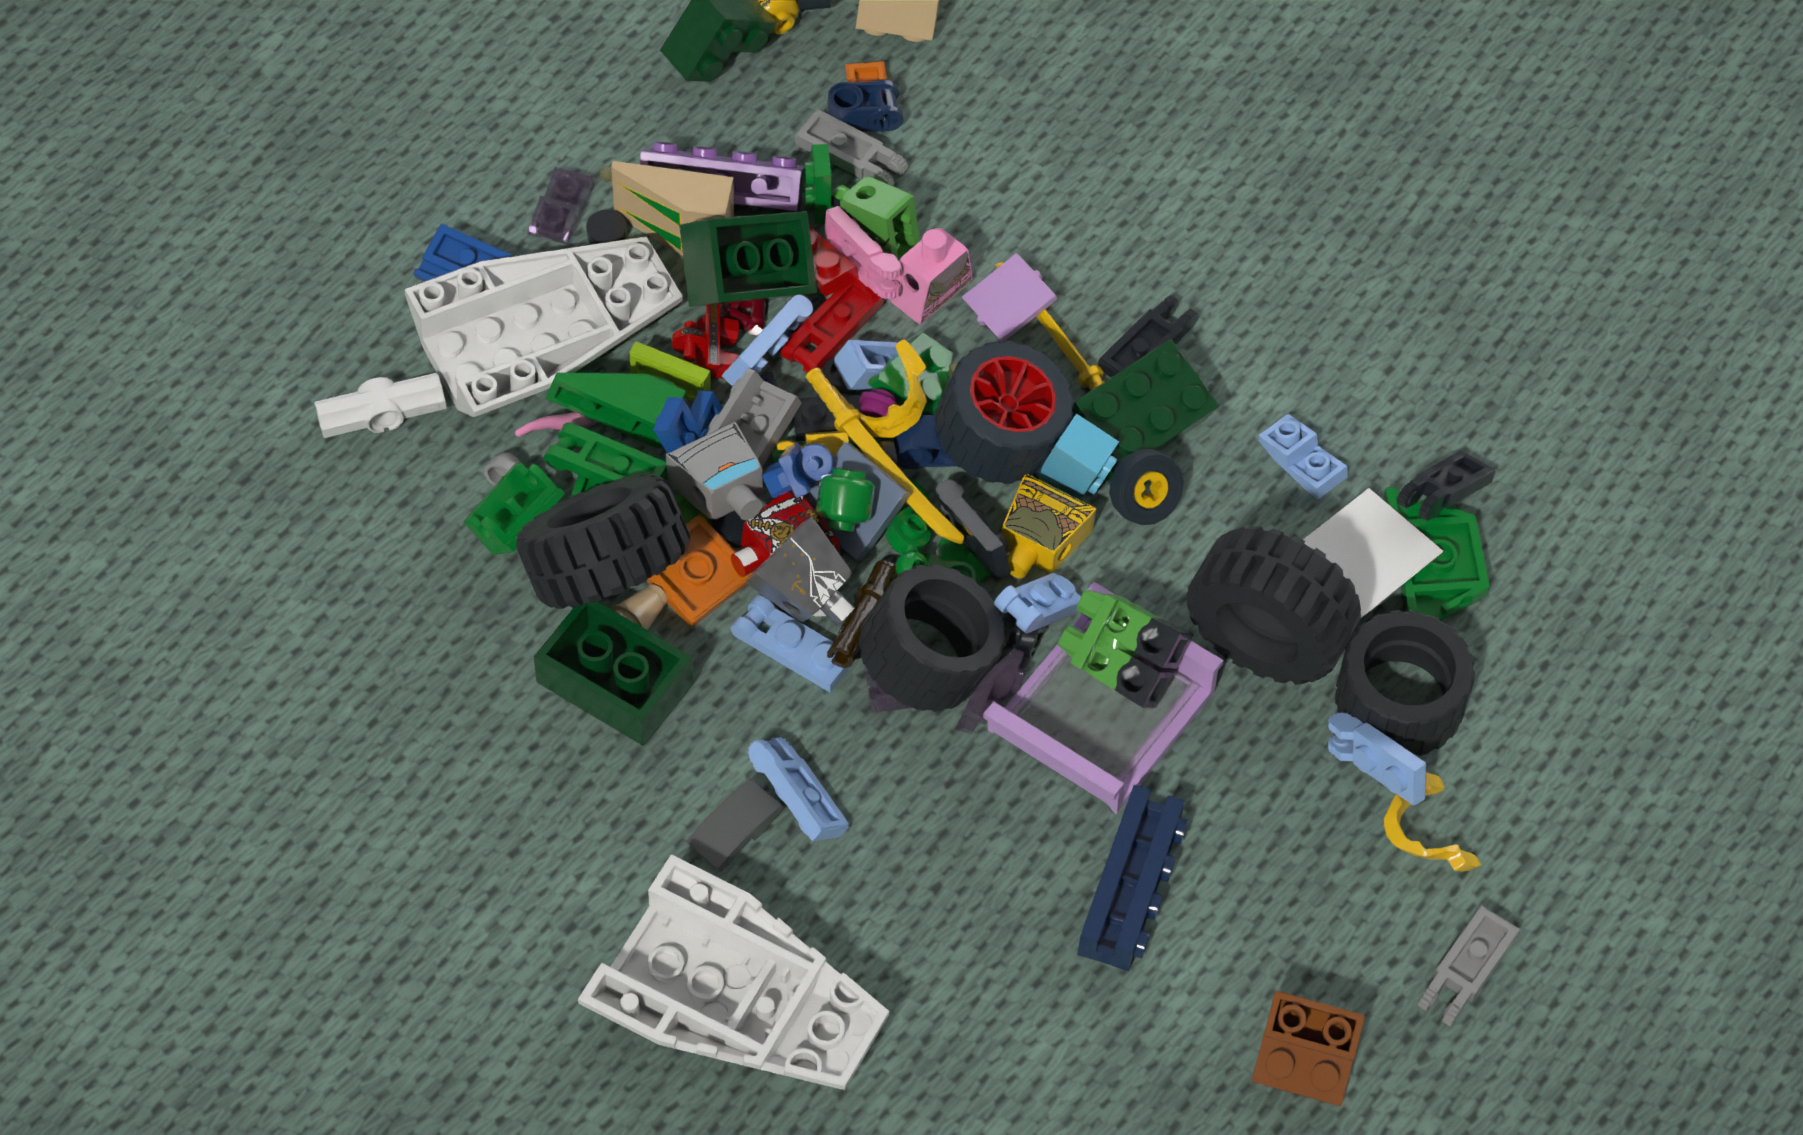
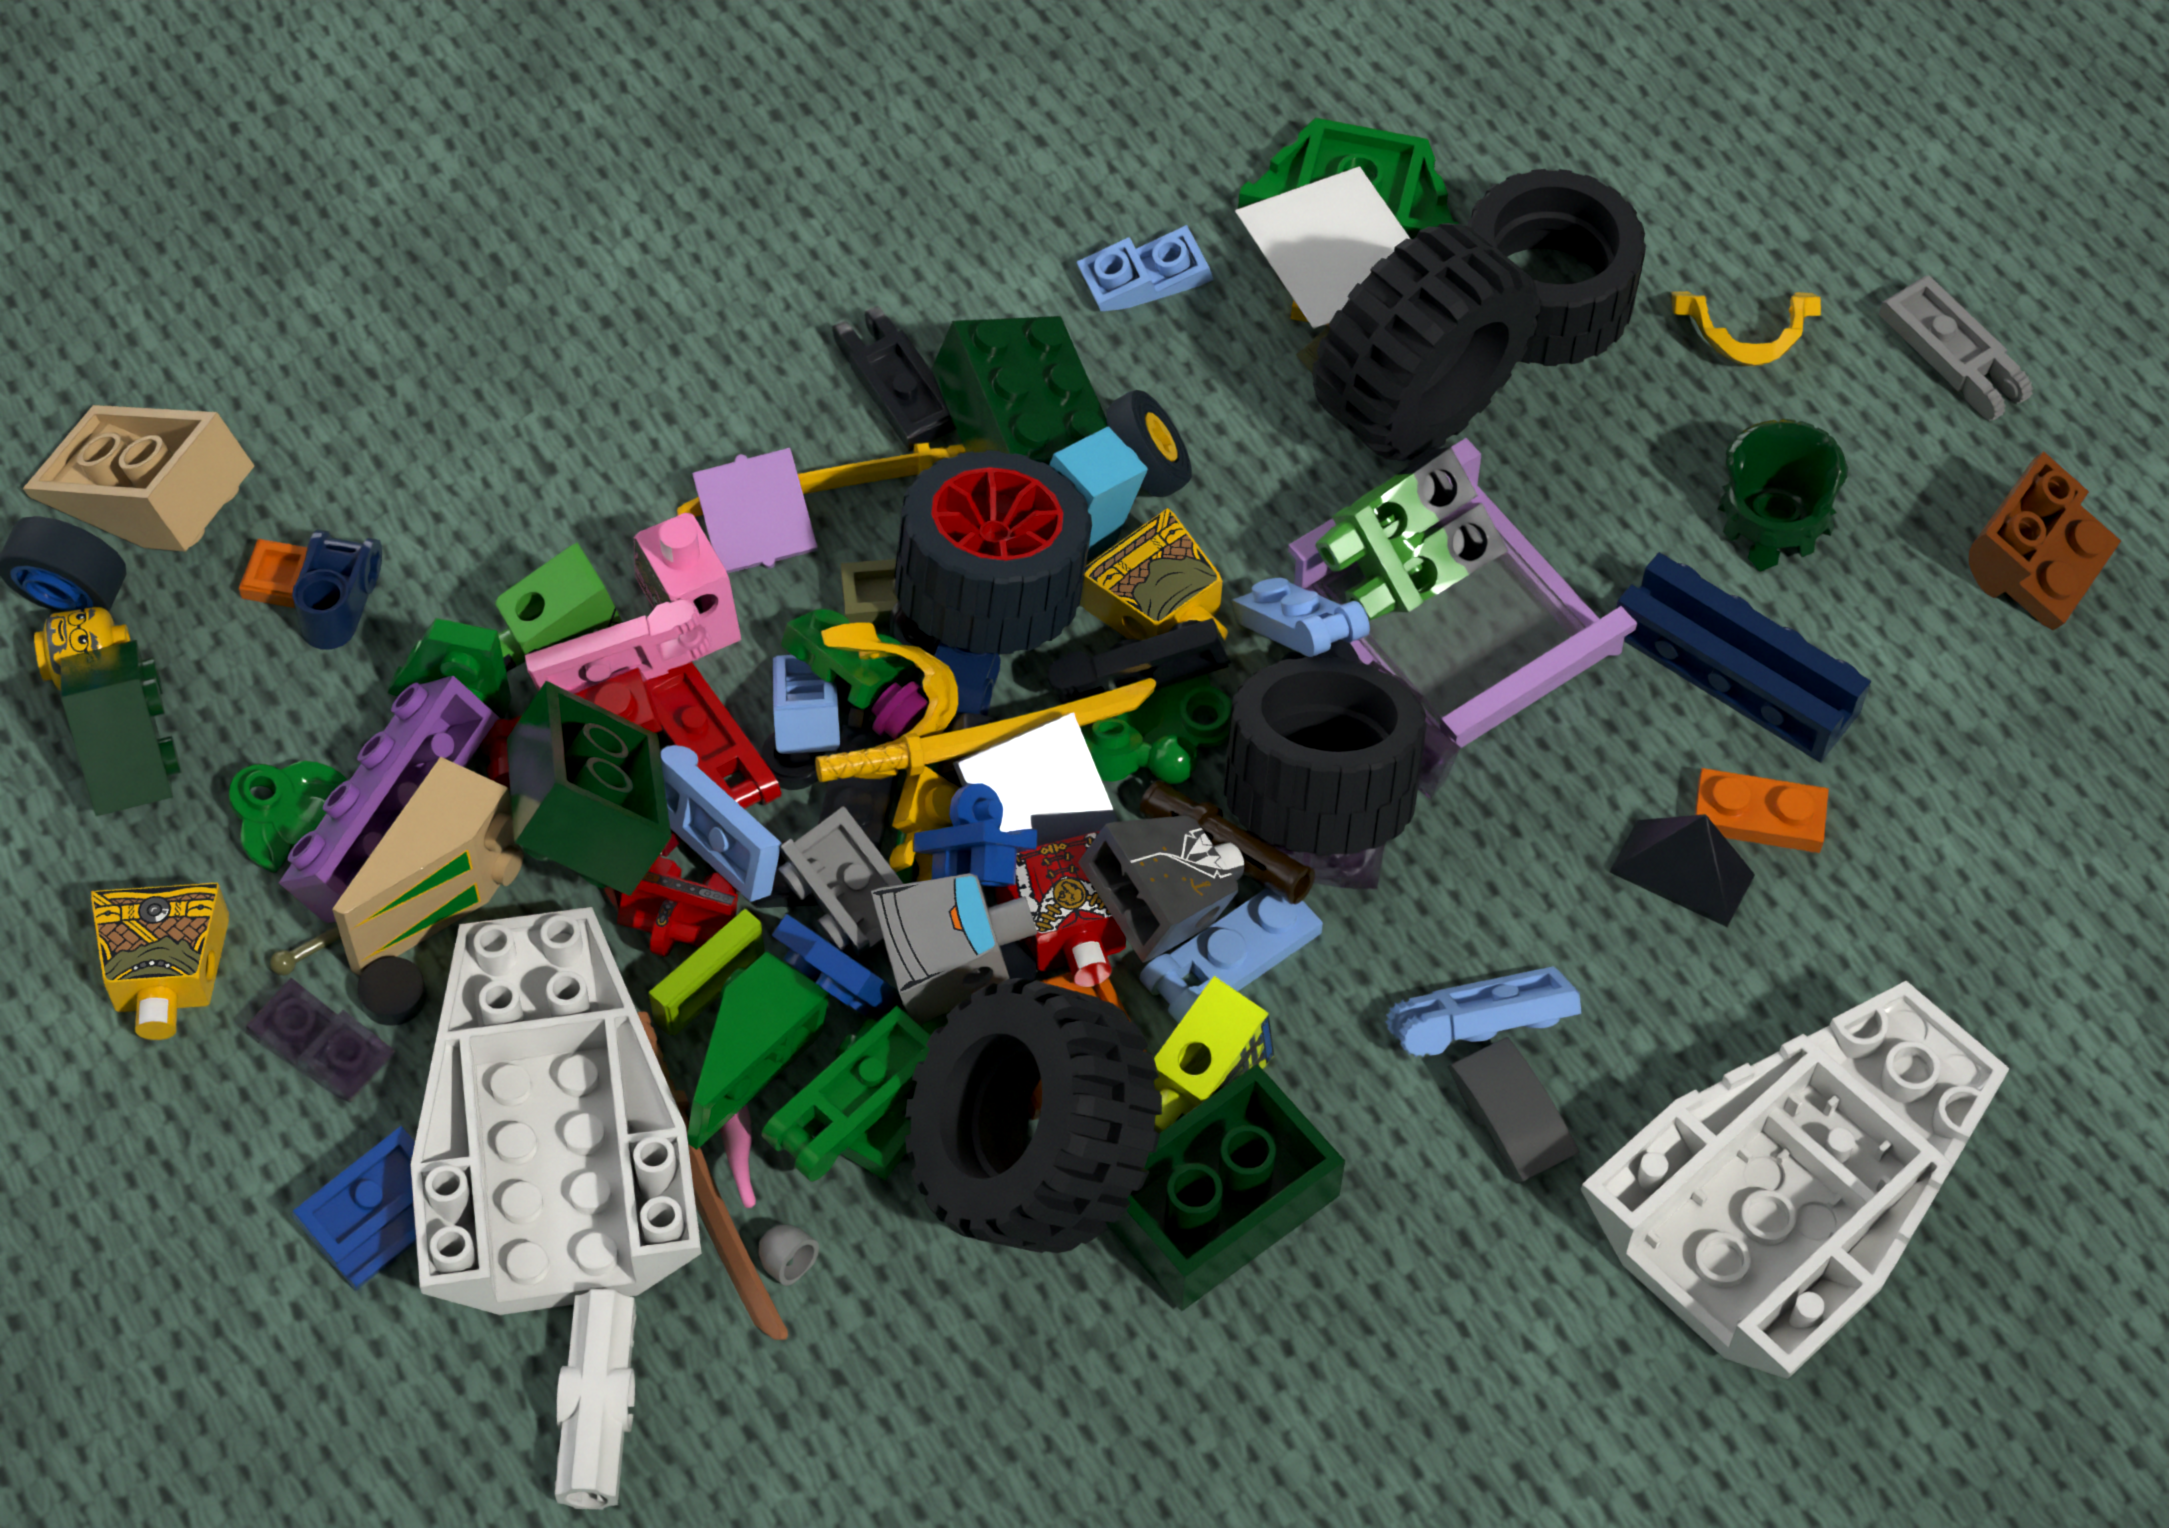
camera: 70 degrees left, 0 degrees up
(511, 505) = (879, 1250): green hinge -> none
(585, 110) = (160, 950): none -> torso
(602, 365) = (719, 1221): none -> nougat sword
(693, 133) = (293, 811): none -> green plate
(707, 635) = (1210, 1049): none -> neon yellow torso
(845, 498) = (1055, 790): green head -> none
(850, 148) = (387, 631): light grey hinge -> none
(953, 887) = (1686, 864): none -> black slope
(1019, 922) = (1763, 809): none -> orange plate
(1278, 868) = (1781, 487): none -> dark green hair
(1378, 756) = (1651, 328): light blue hinge -> none
(1446, 484) = (1264, 126): black hinge -> none

